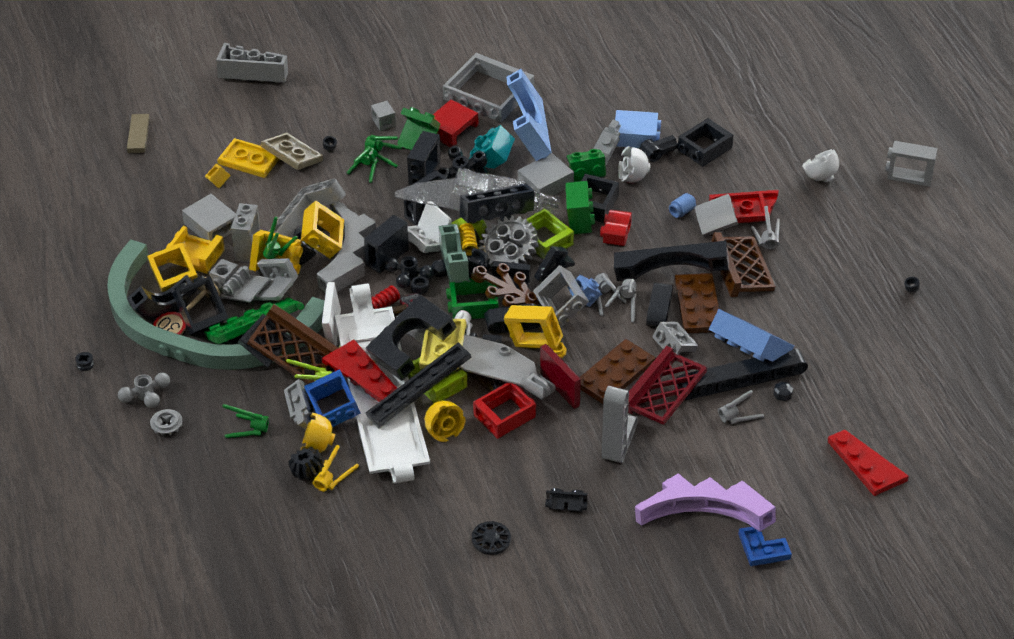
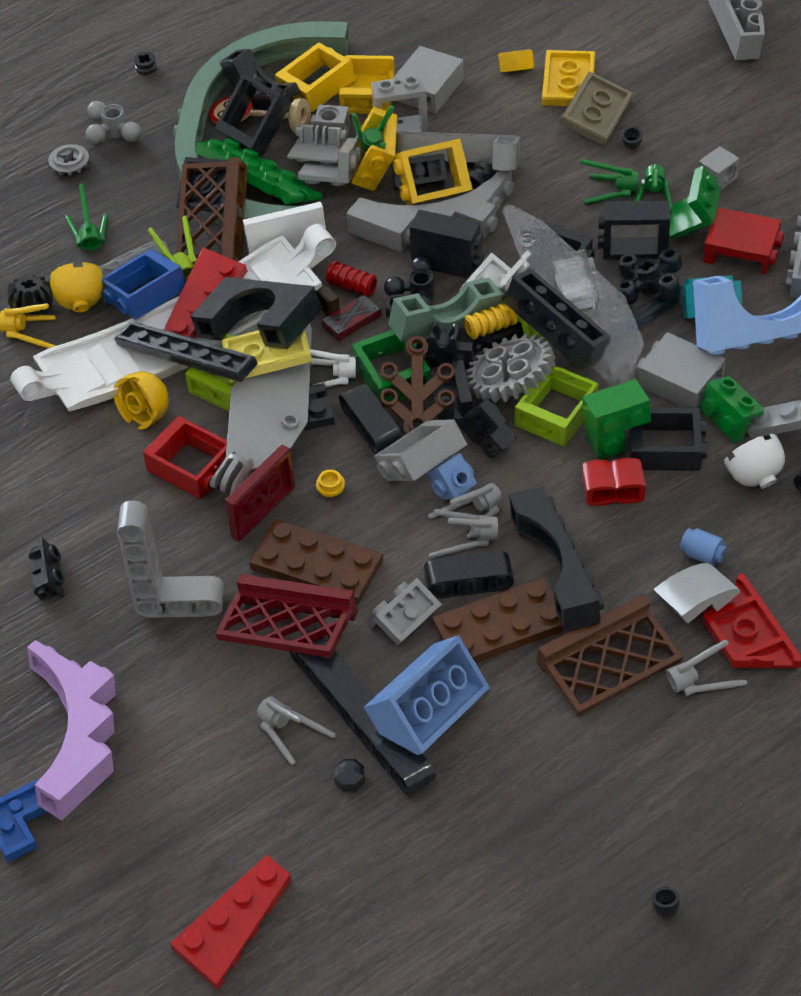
camera: 75 degrees right, 5 degrees up
(533, 314) = (337, 435): yellow window -> none

